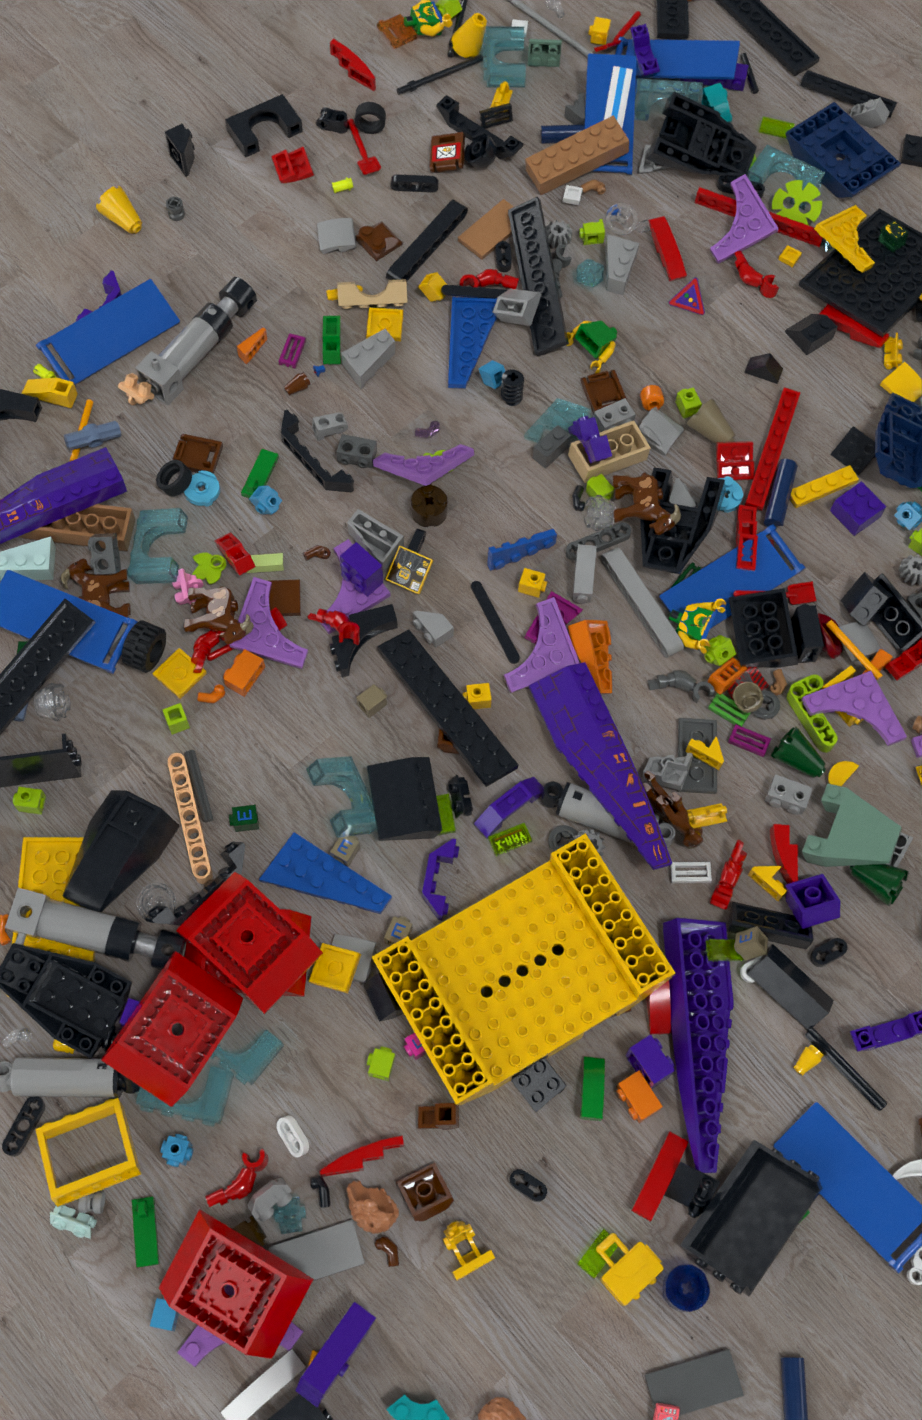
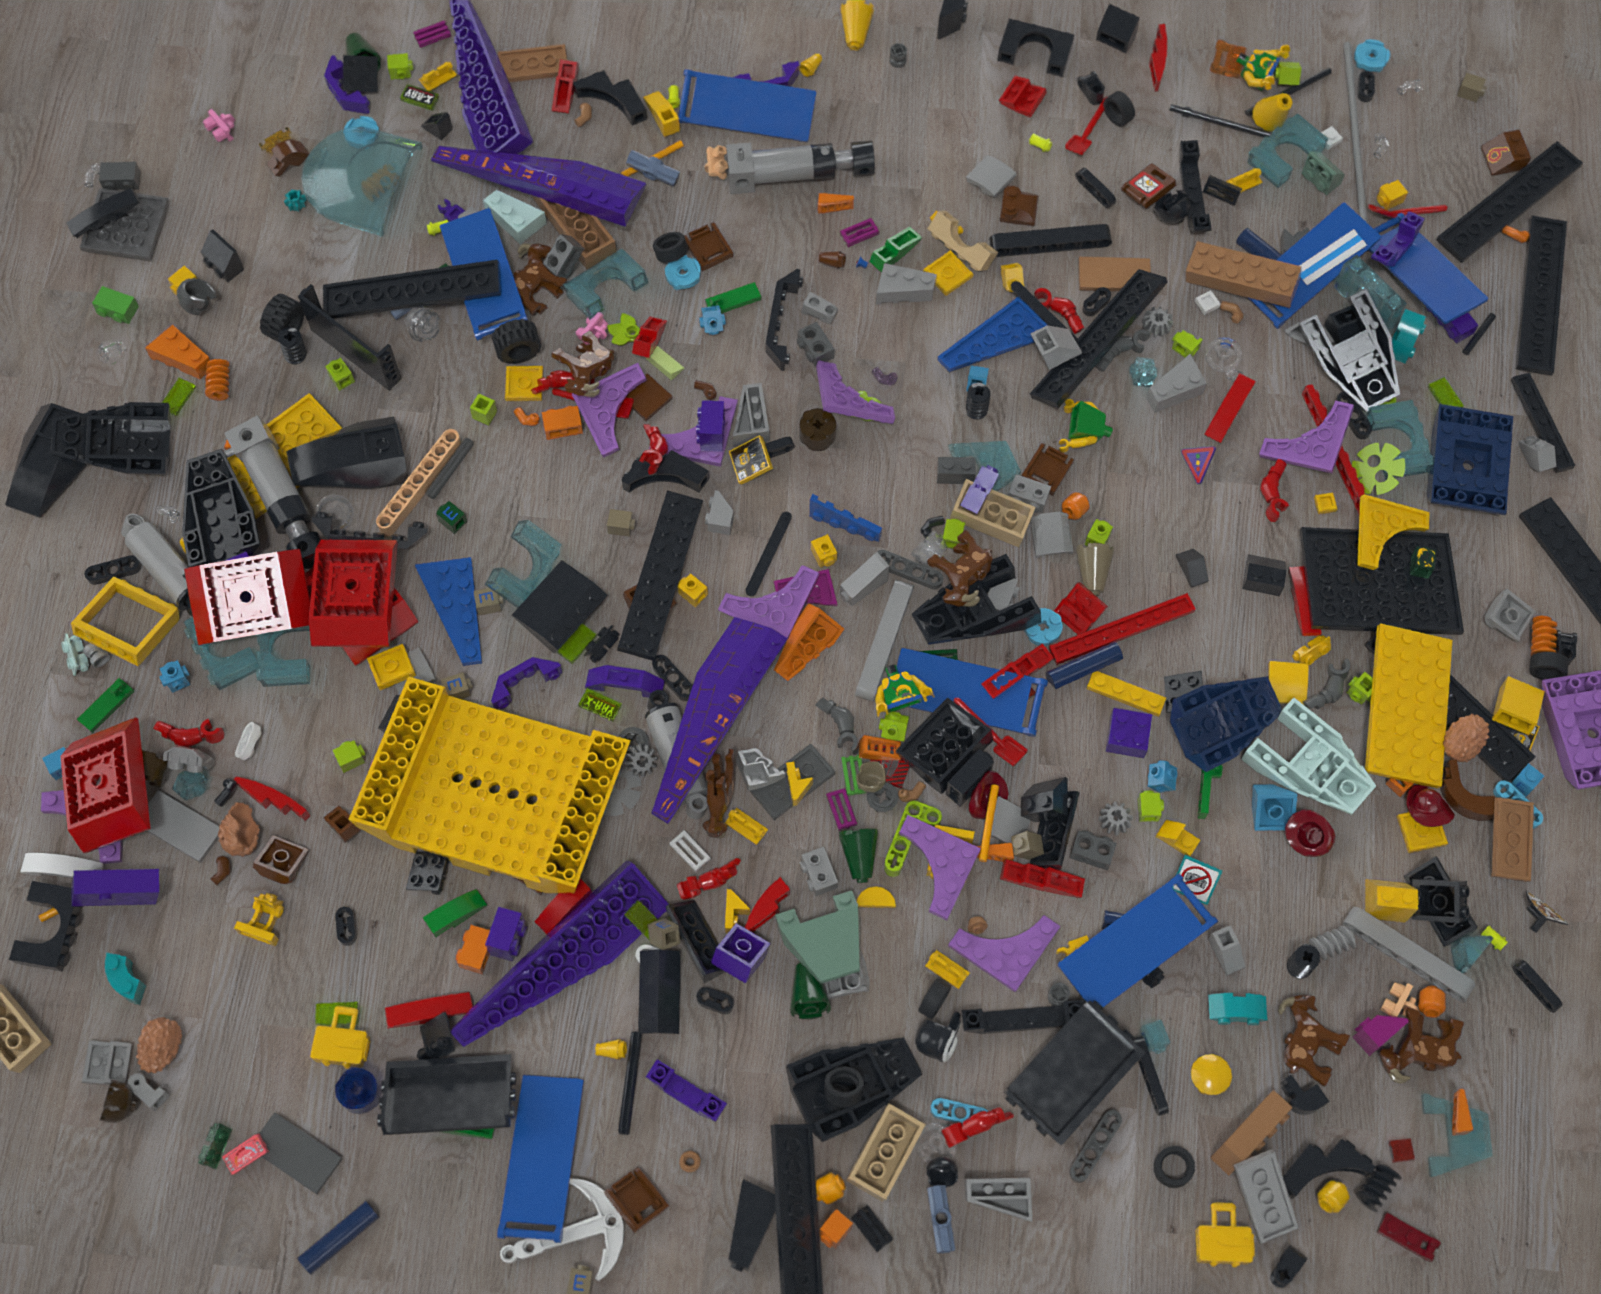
camera: 50 degrees right, 0 degrees up
(120, 267) = (810, 65): none -> yellow cone
(306, 66) = (1118, 28): none -> black slope
(530, 762) = (673, 670): none -> black beam
(889, 640) = (1027, 845): none -> dark tan brick

